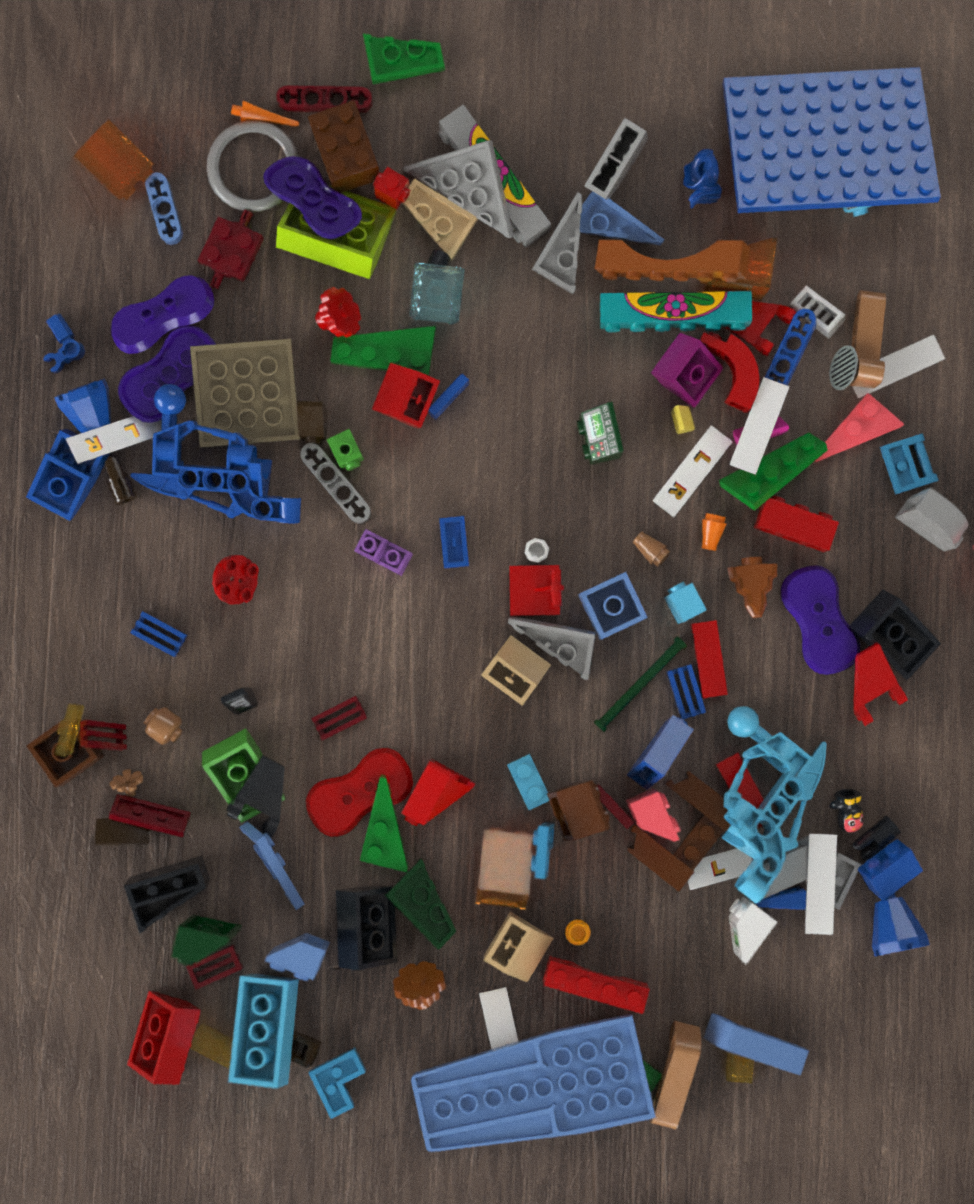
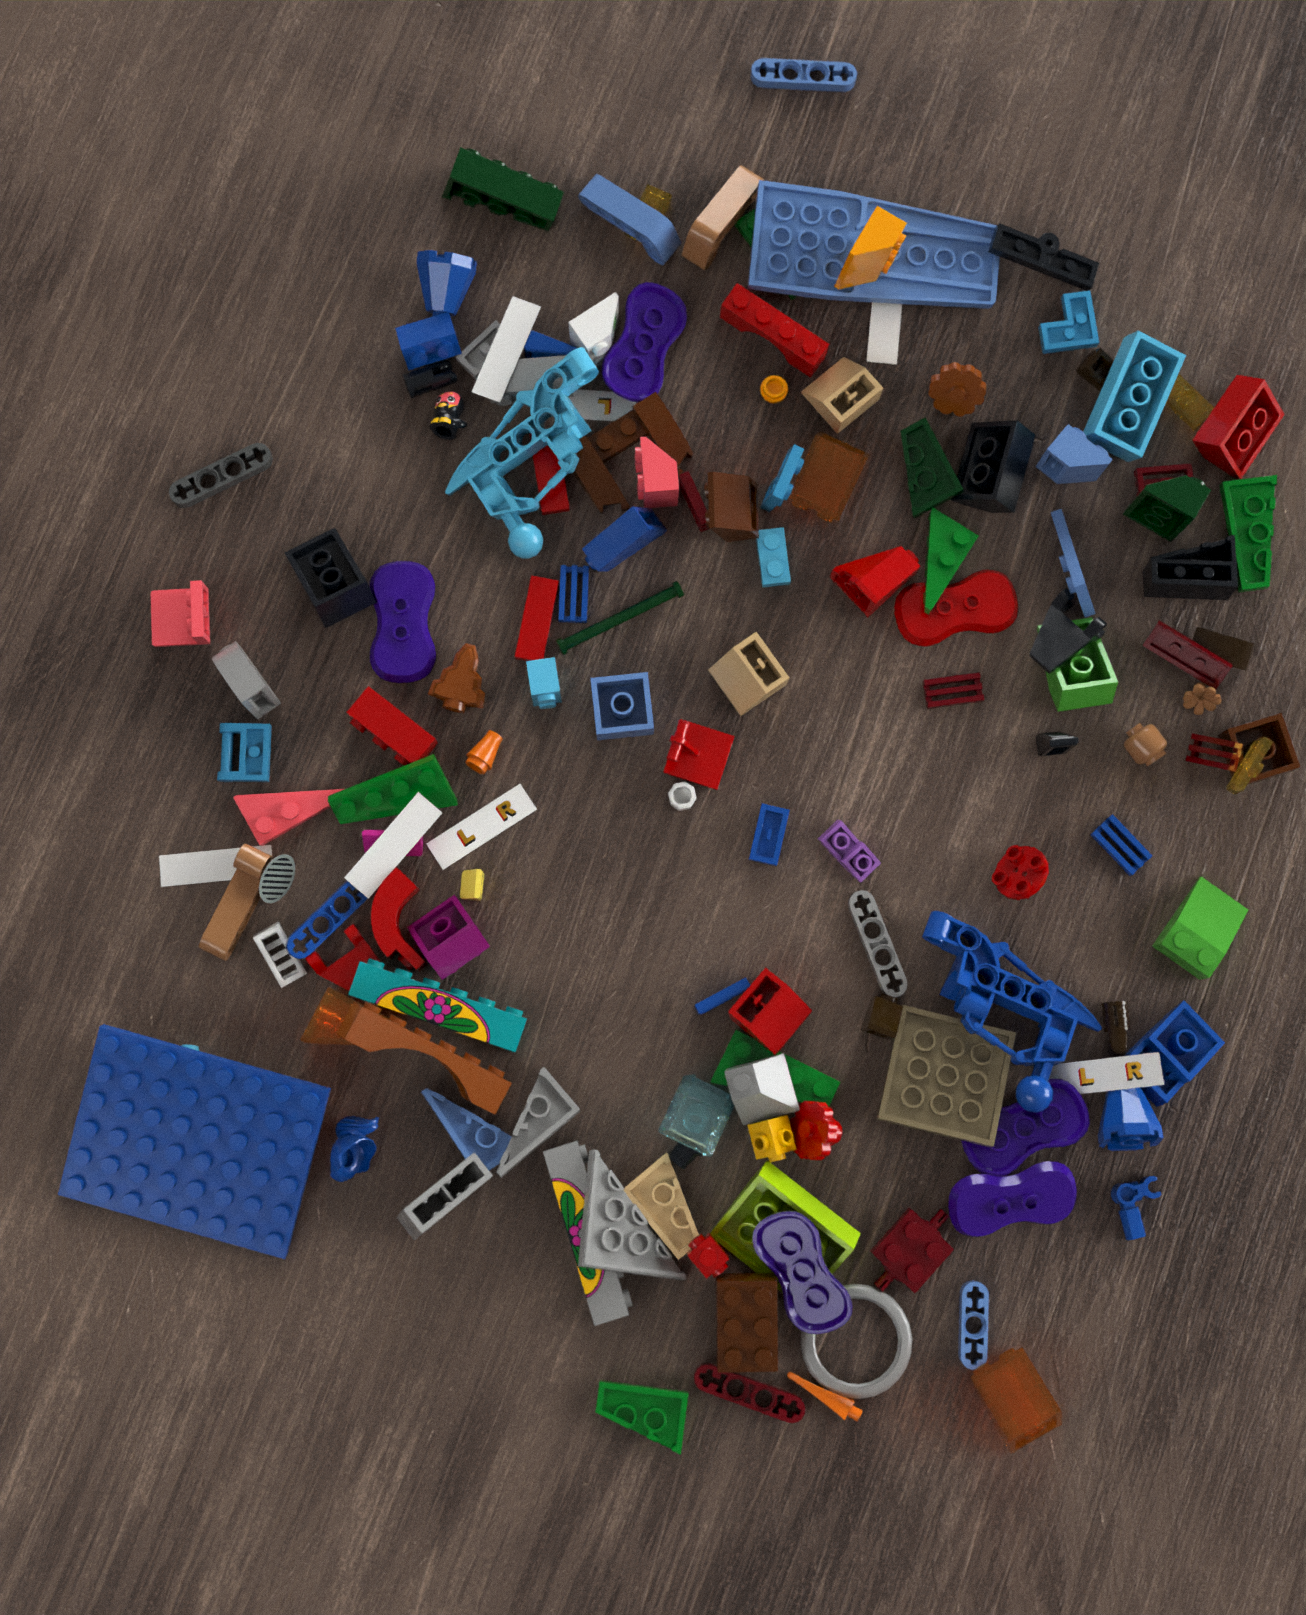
camera: 165 degrees left, 5 degrees down
(71, 586) = (1201, 929): none -> bright green slope
(129, 952) = (1249, 517): none -> green wing
(345, 450) = (855, 974): bright green brick -> none
(370, 296) = (772, 1138): none -> yellow brick
(381, 1136) = (1043, 256): none -> black hinge
(392, 332) = (762, 1089): none -> light grey slope
(533, 1080) = (873, 250): none -> light orange slope
(568, 644) = (686, 687): light grey wing -> none
(600, 434) = (570, 895): dark green slope -> none
(652, 549) = (557, 755): medium nougat cone -> none
(703, 953) = (652, 323): none -> dark purple plate
(873, 679) = (374, 537): red flag -> none
(876, 1031) = (502, 189): none -> dark green wedge

